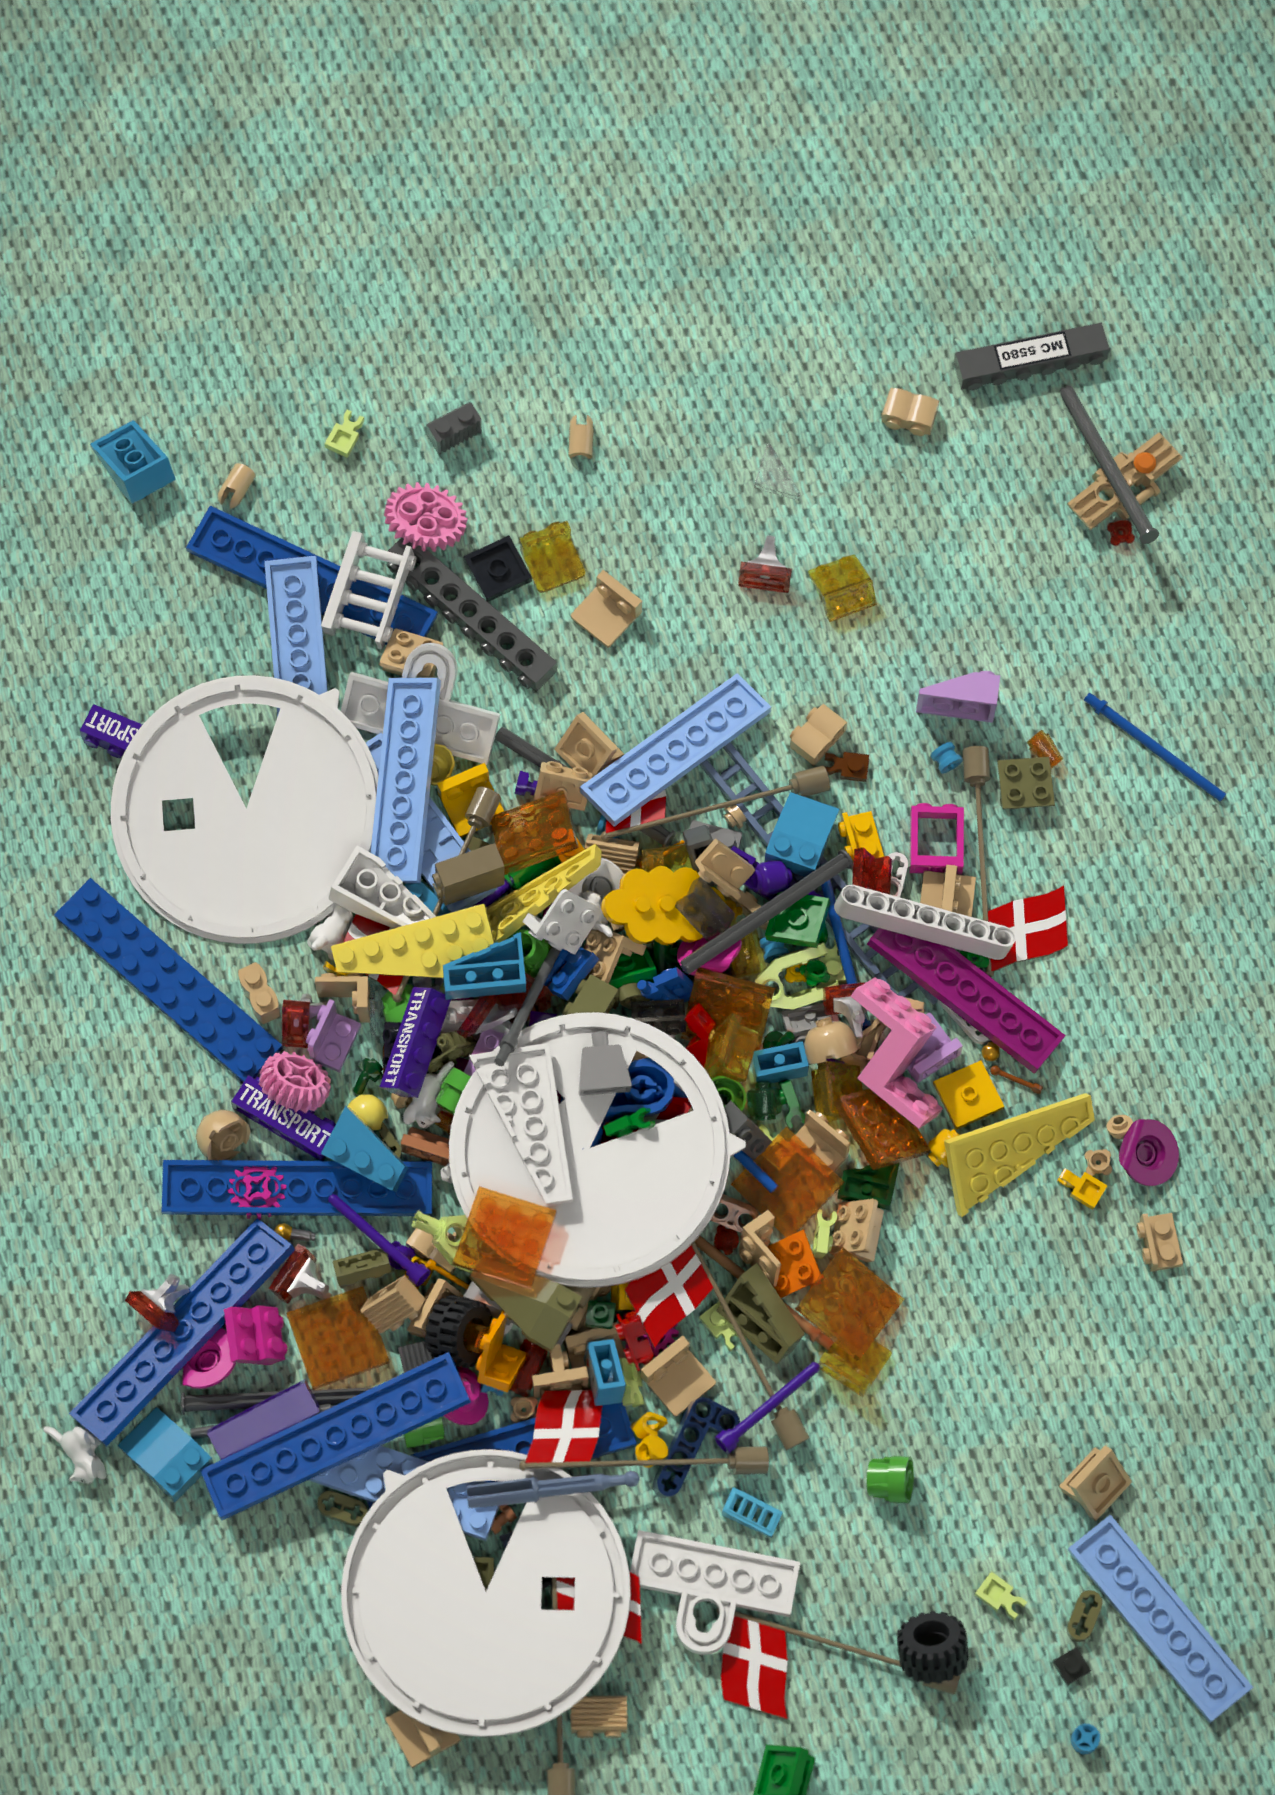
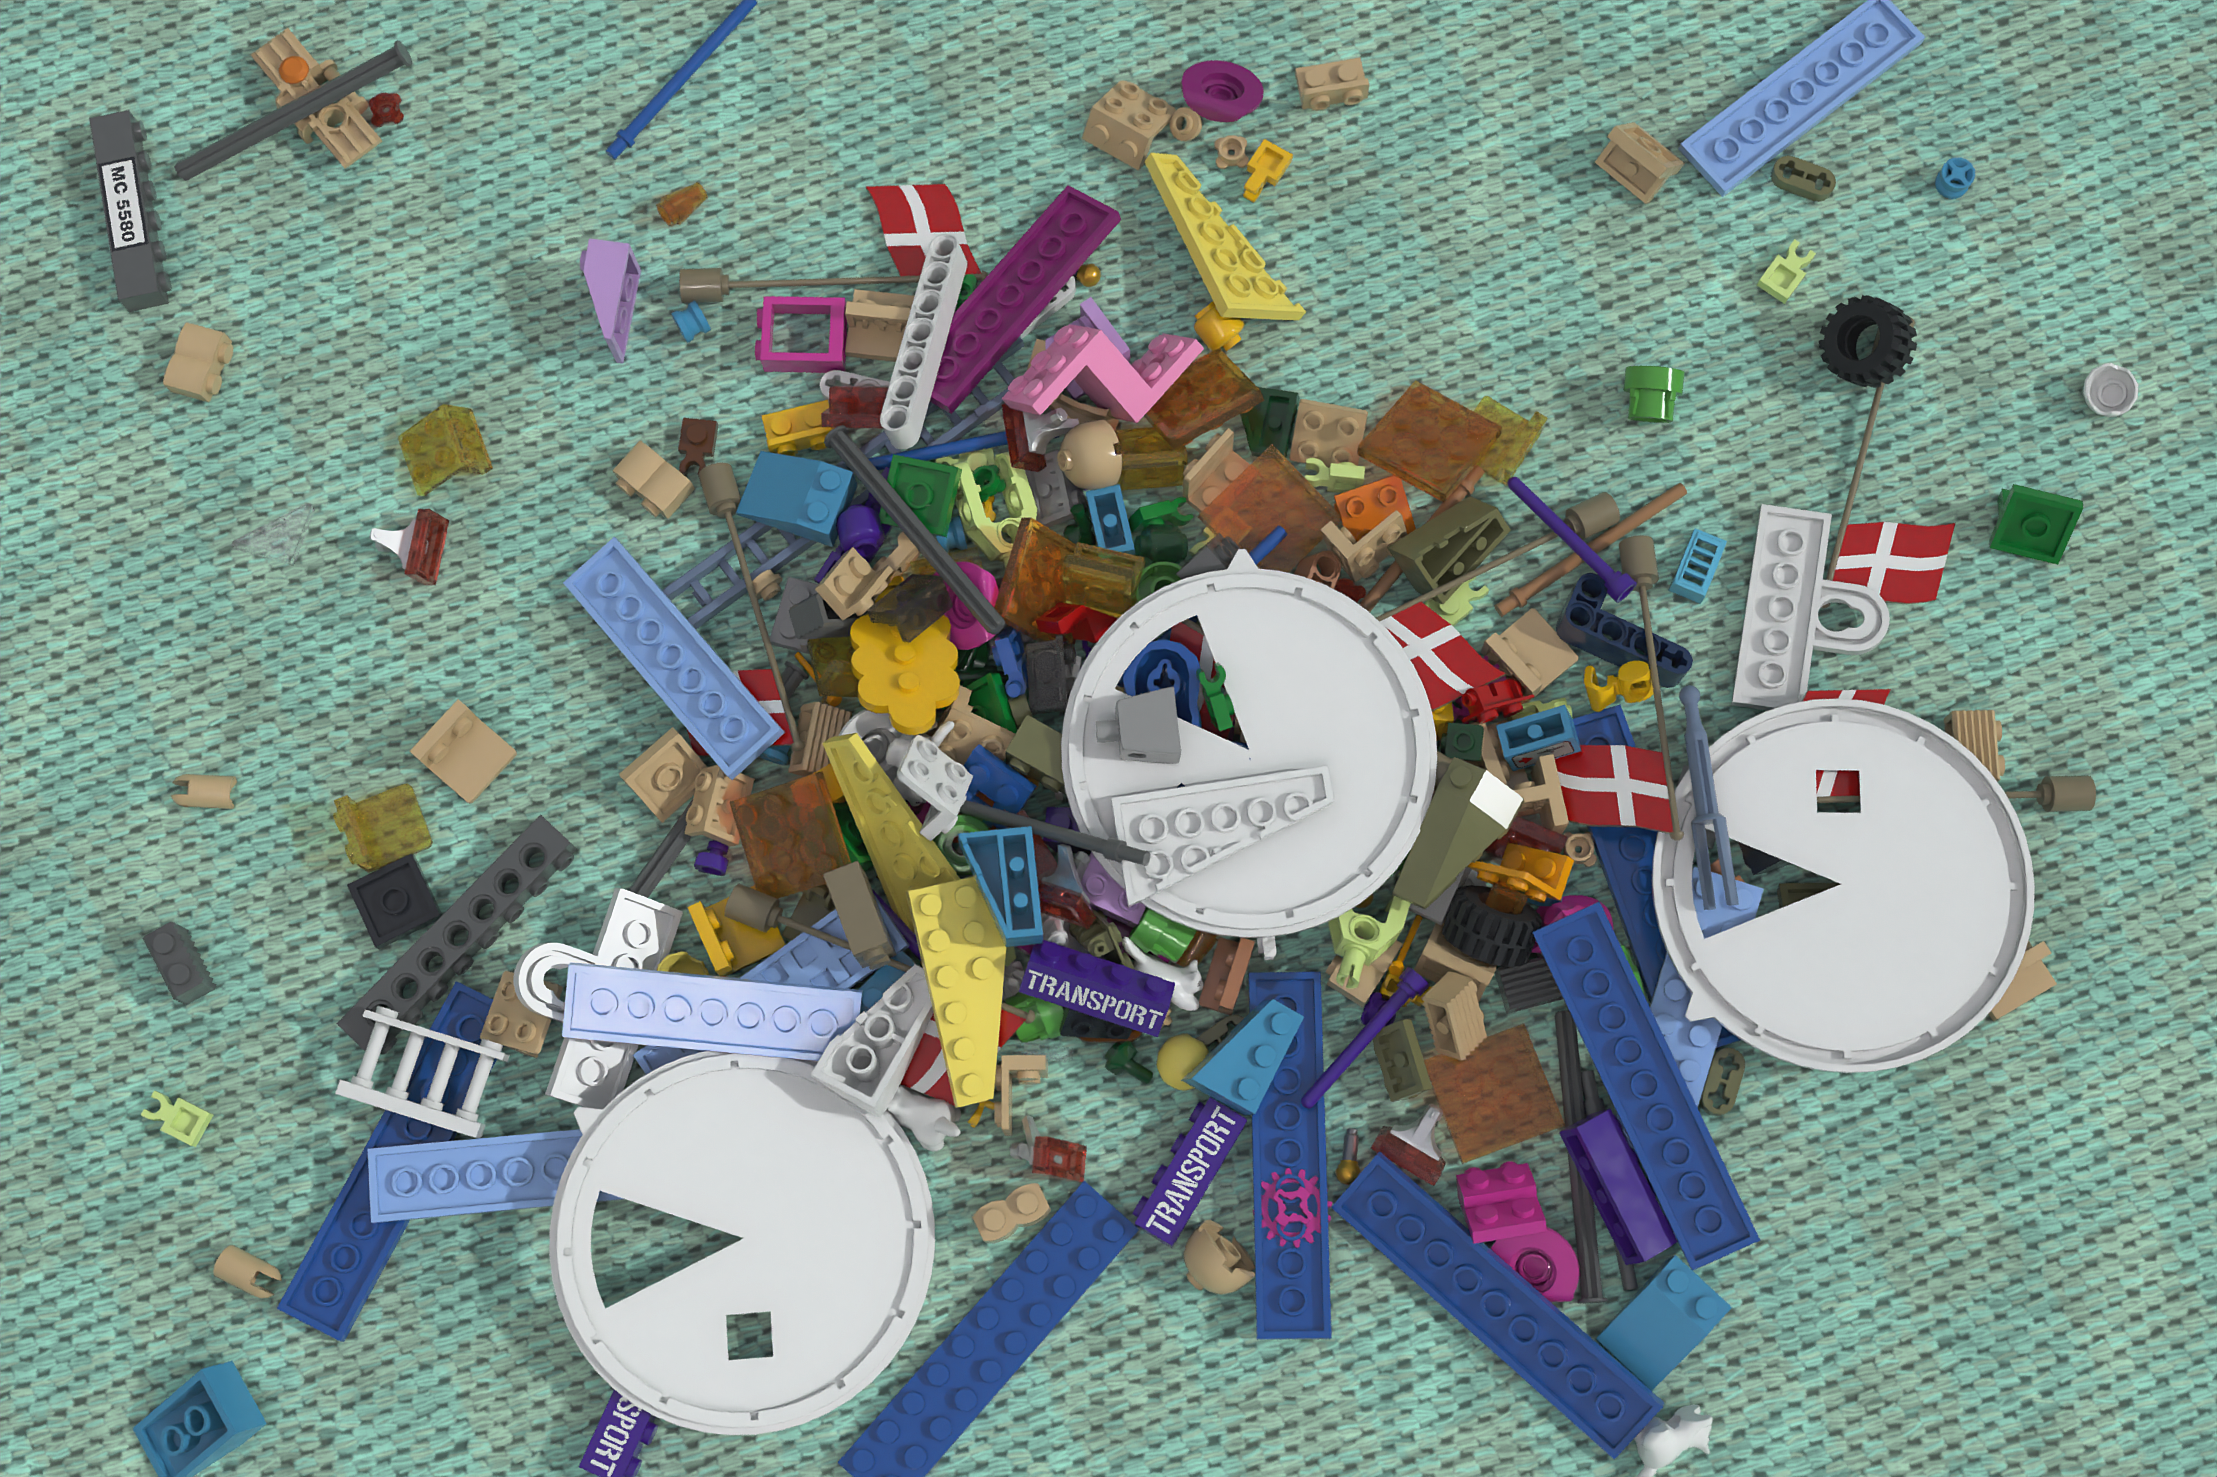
camera: 85 degrees left, 5 degrees up
(157, 1304) = (1464, 1338): piece -> none
(295, 1082) = (1144, 1157): bright pink gear -> none
(332, 1038) = (1077, 1109): lavender bracket -> none
(425, 517) = (294, 1014): bright pink gear -> none
(505, 1237) = (1380, 855): clear orange plate -> none
(726, 1374) = (1519, 597): none -> medium nougat bar
(968, 1095) = (1144, 303): yellow plate -> none
(1025, 783) = (730, 224): olive hinge -> none
(1036, 1088) = (1112, 270): dark orange hinge -> none
(1071, 1666) = (1865, 194): pearl dark grey plate -> none
(1122, 1082) = (1127, 122): none -> tan bracket

